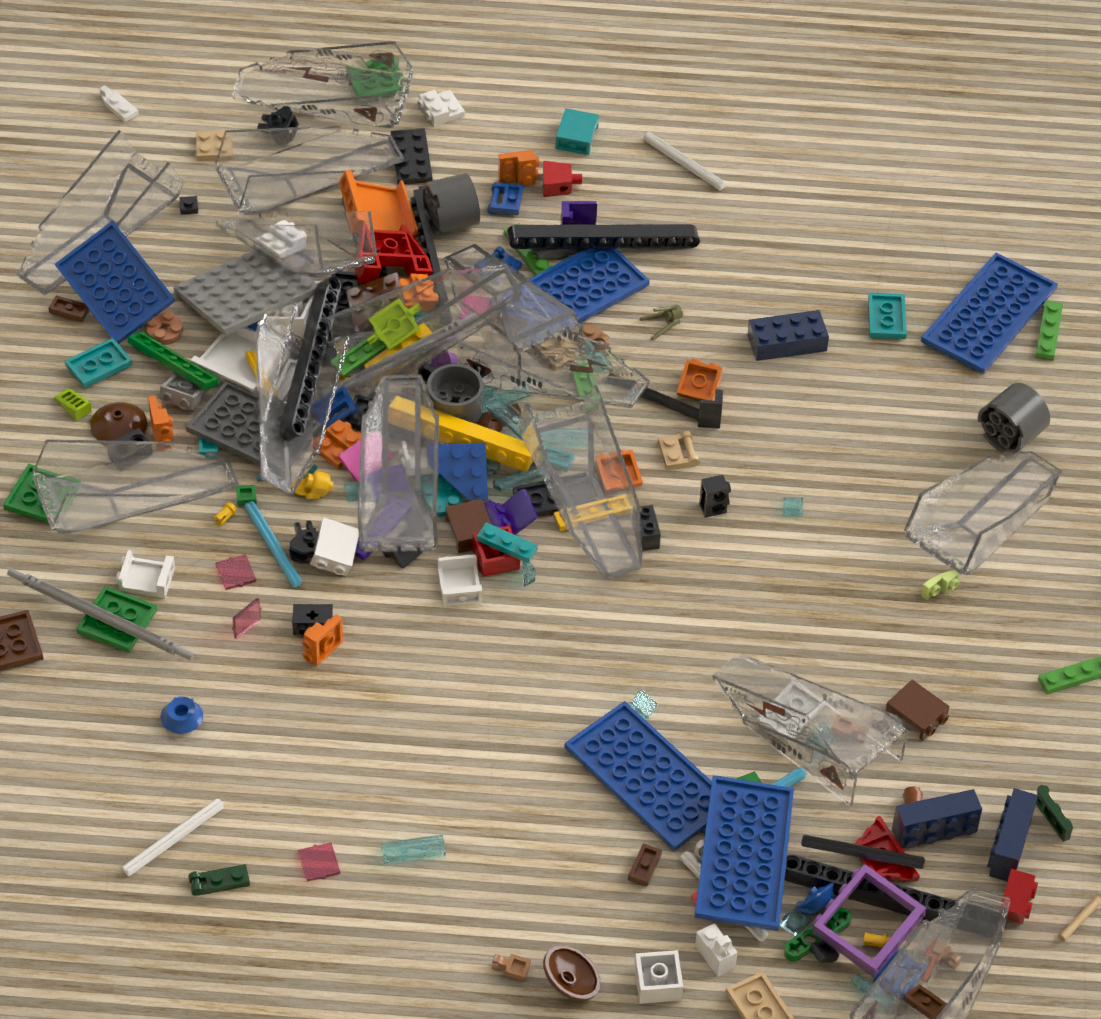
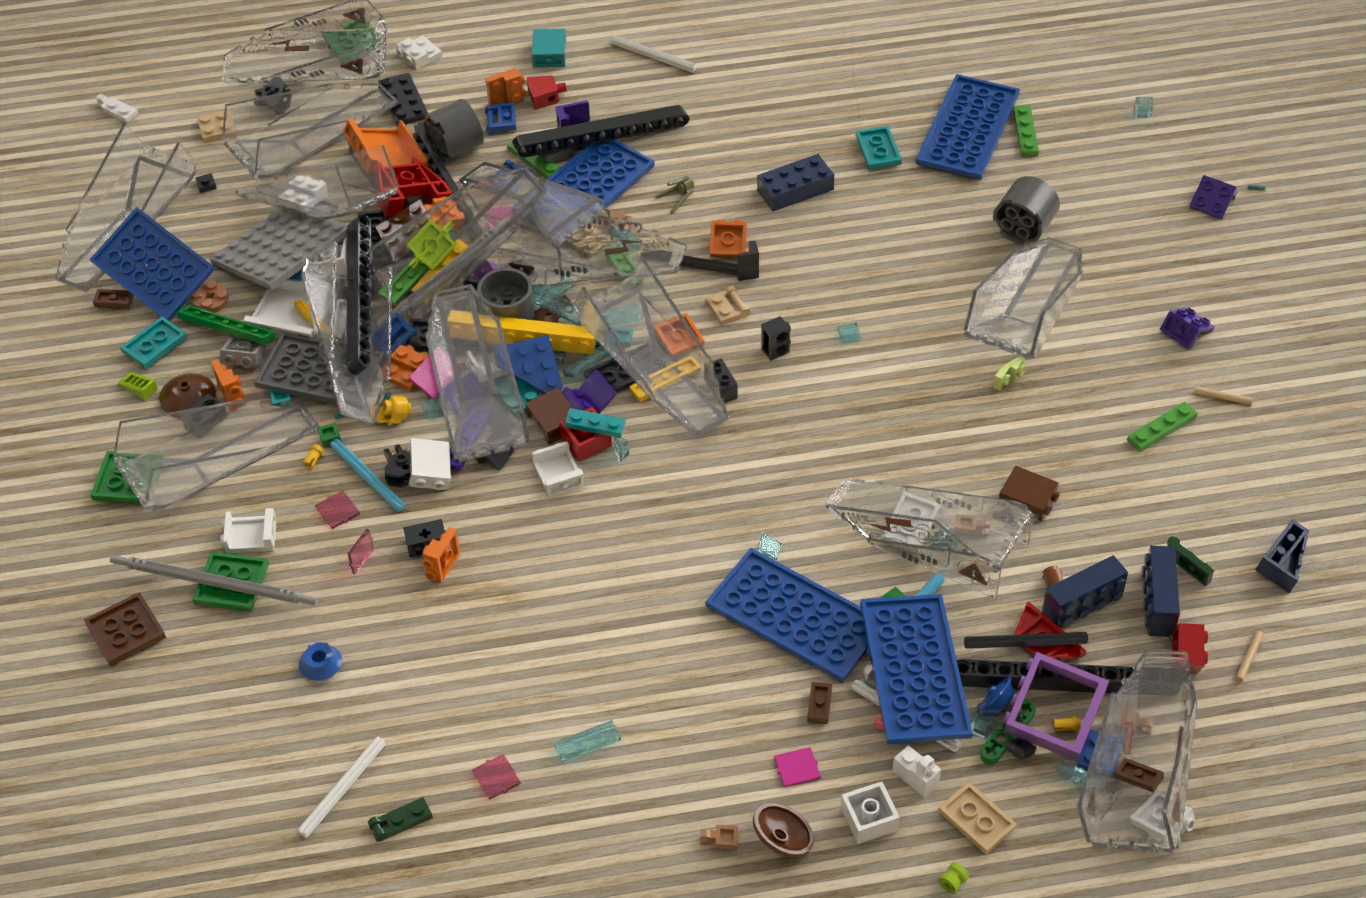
camera: 10 degrees left, 0 degrees up
(605, 920) = (797, 767): none -> dark pink piece

